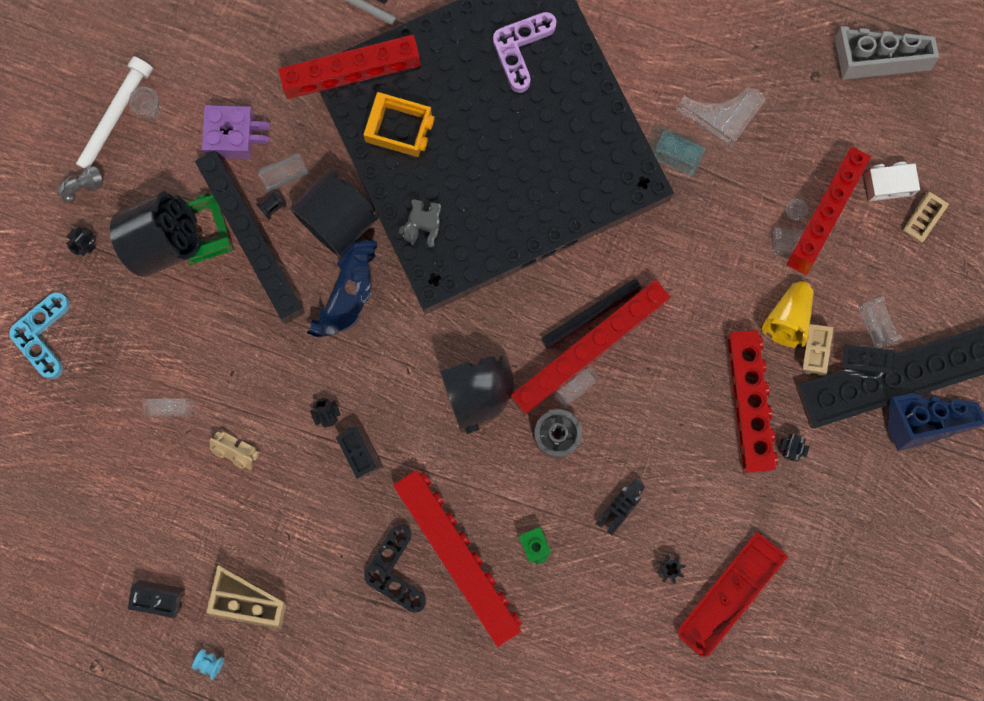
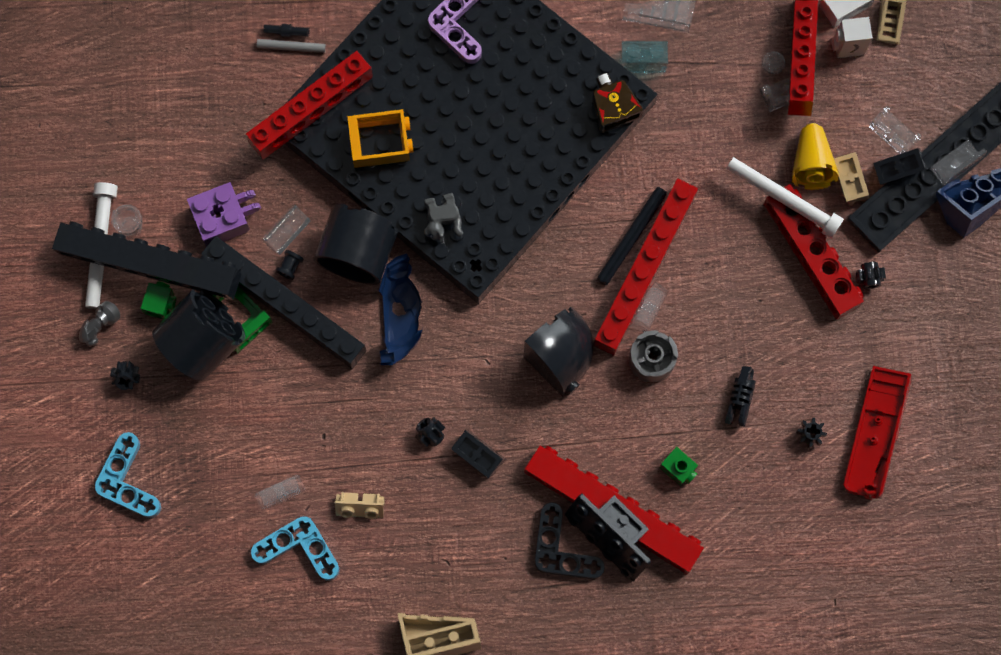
camera: 25 degrees left, 5 degrees down
(141, 185) = (158, 300): none -> green brick
(143, 147) = (146, 260): none -> black brick
(171, 460) = (305, 540): none -> medium azure beam
(447, 579) = (613, 531): none -> black bracket
(628, 185) = (614, 104): none -> dark brown torso
(776, 383) = (828, 223): none -> white piece
(880, 218) = (852, 37): none -> white brick
(924, 378) = (957, 162): none -> clear panel

